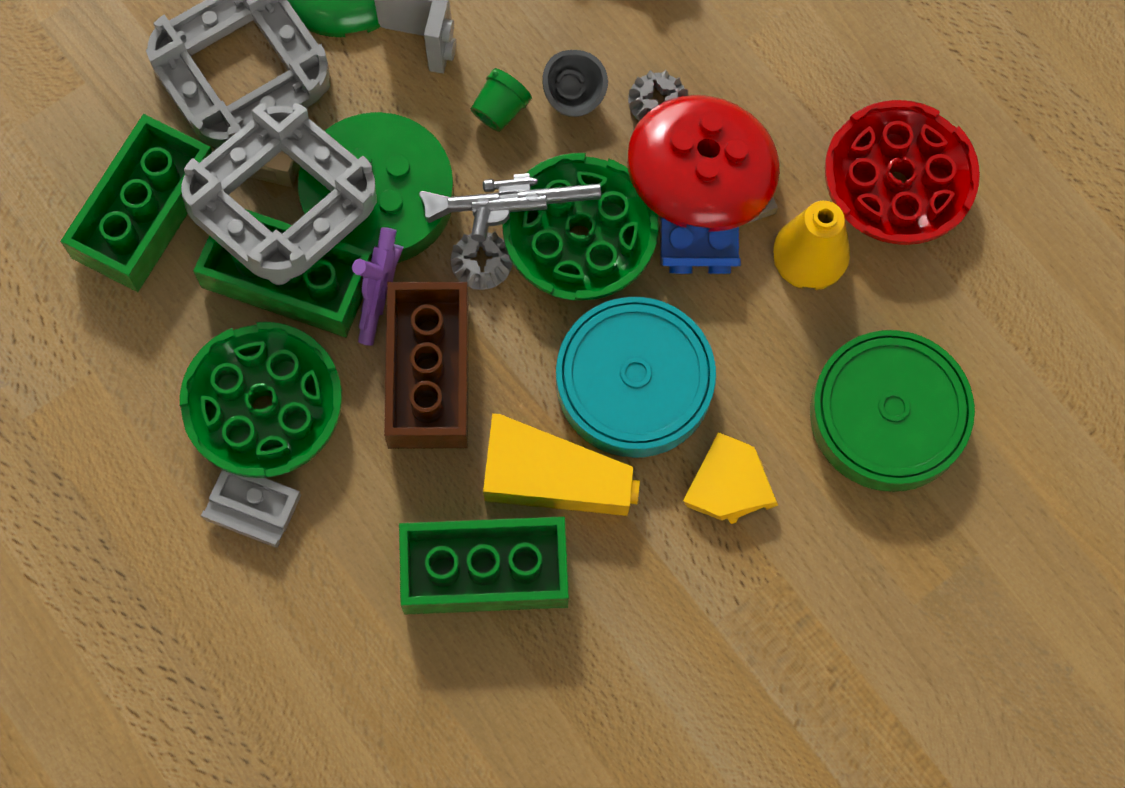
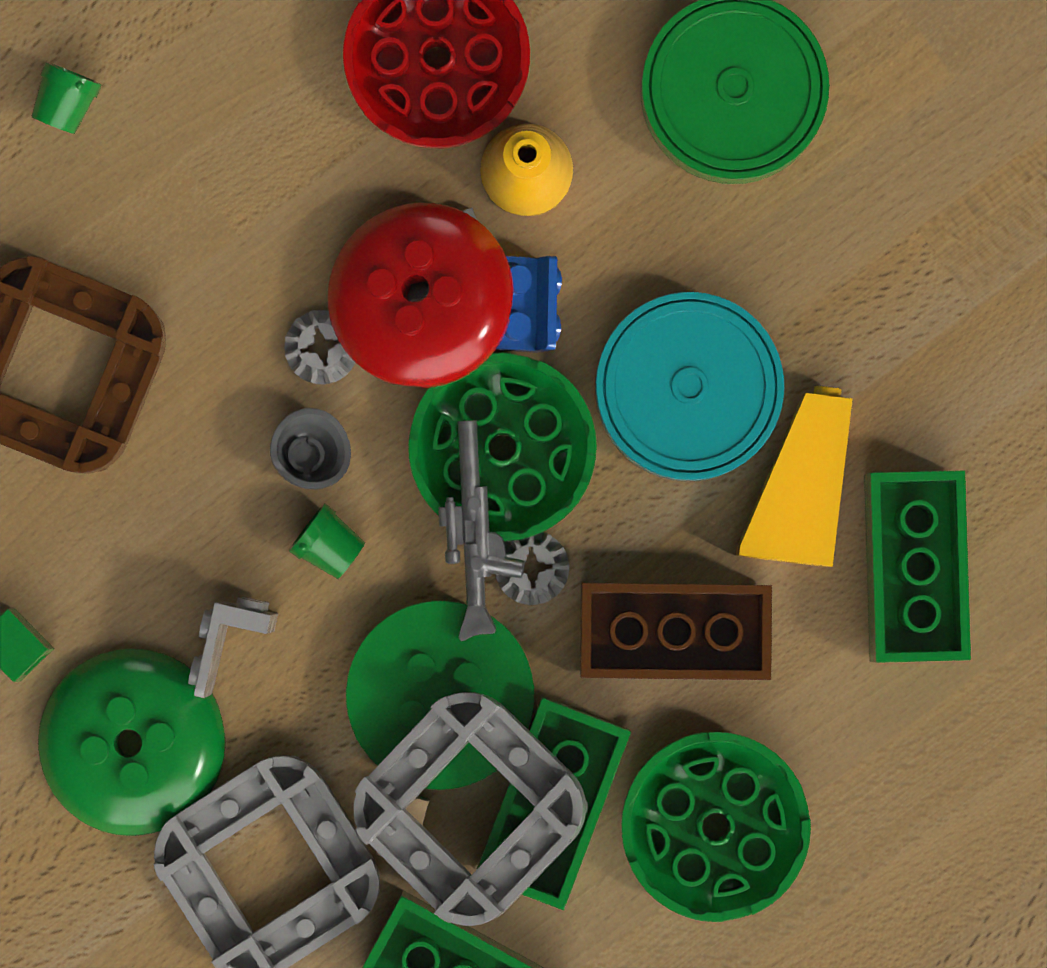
camera: 90 degrees left, 15 degrees up
(252, 507) = (840, 835): light grey plate -> none
(375, 280) = (573, 692): medium lavender piece -> none
(730, 482) = (813, 280): yellow slope -> none

